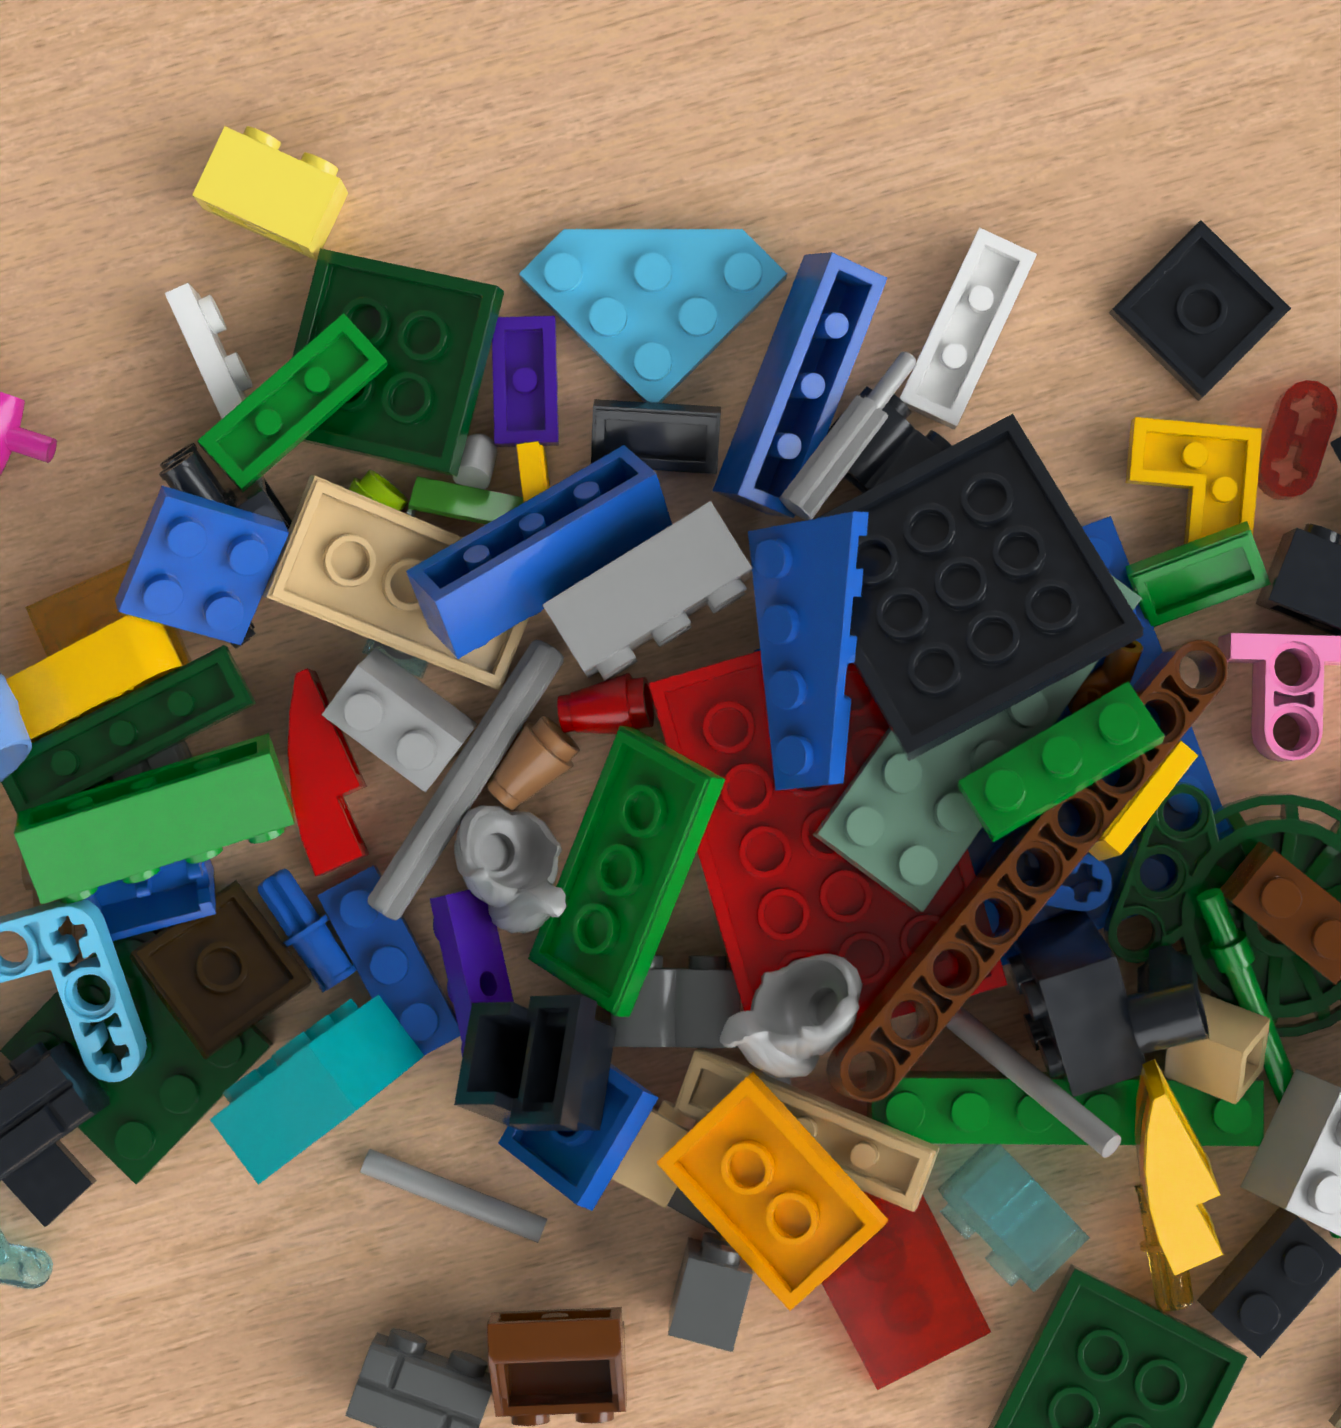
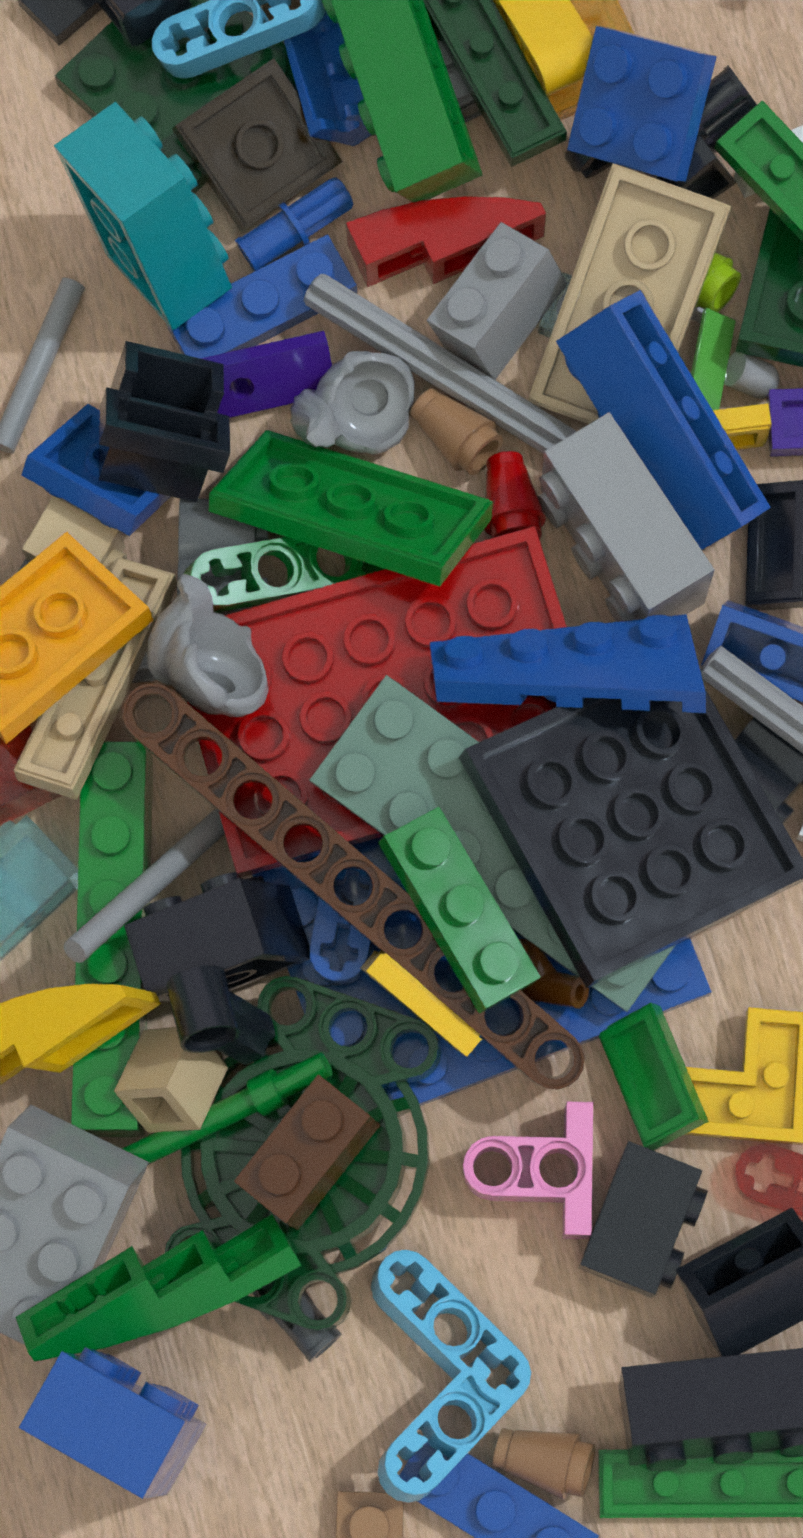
camera: 85 degrees right, 10 degrees down
(699, 920) = (298, 559): none -> green beam

